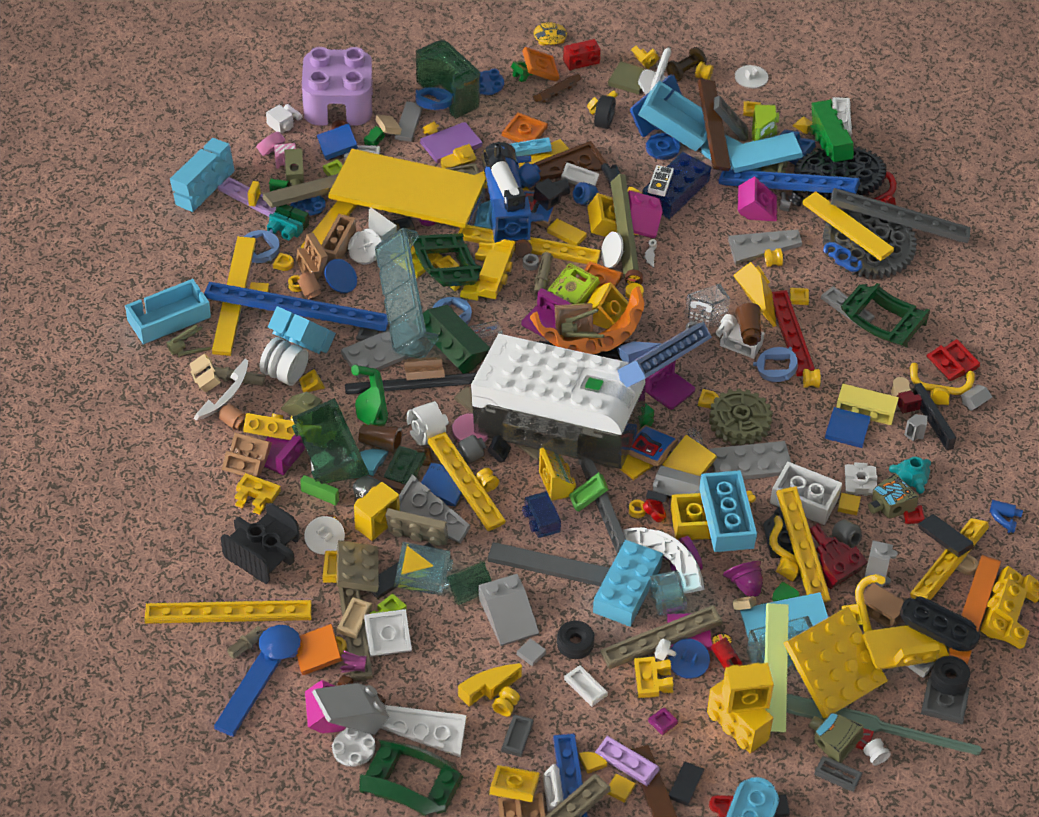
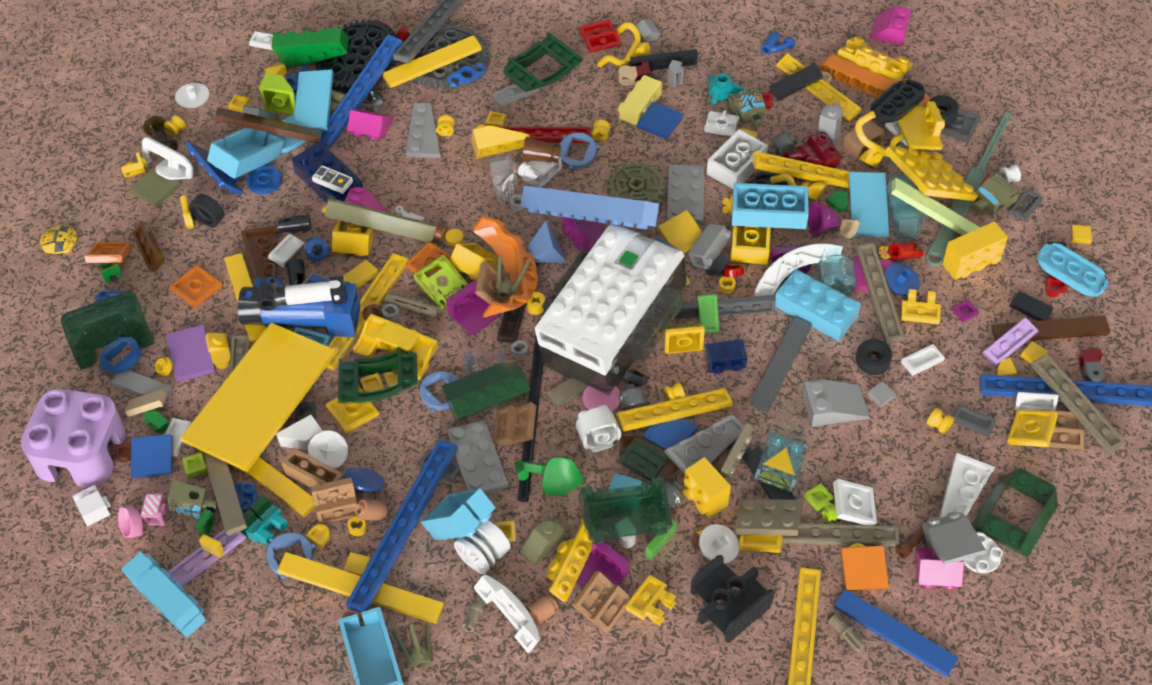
camera: 75 degrees left, 5 degrees up
(208, 379) = (481, 631): tan piece -> none
(279, 642) = (855, 599): blue dish -> none
(354, 618) = (830, 529): tan tile -> none
(354, 662) = (890, 533): flat silver piece -> none
(381, 436) = (602, 471): reddish brown plant -> none
(402, 295) = (417, 419): clear light blue piece -> none
(467, 581) = (801, 425): clear green plate -> none
(488, 683) = (919, 431): yellow slope -> none
(532, 146) = (228, 288): medium azure tile -> none
(547, 194) = (313, 272): black brick -> none
(581, 54) = (108, 216): red brick -> none
(612, 250) = (403, 239): white piece -> none
(663, 649) = (900, 290): white tile -> none
(747, 687) = (978, 224): yellow brick -> none

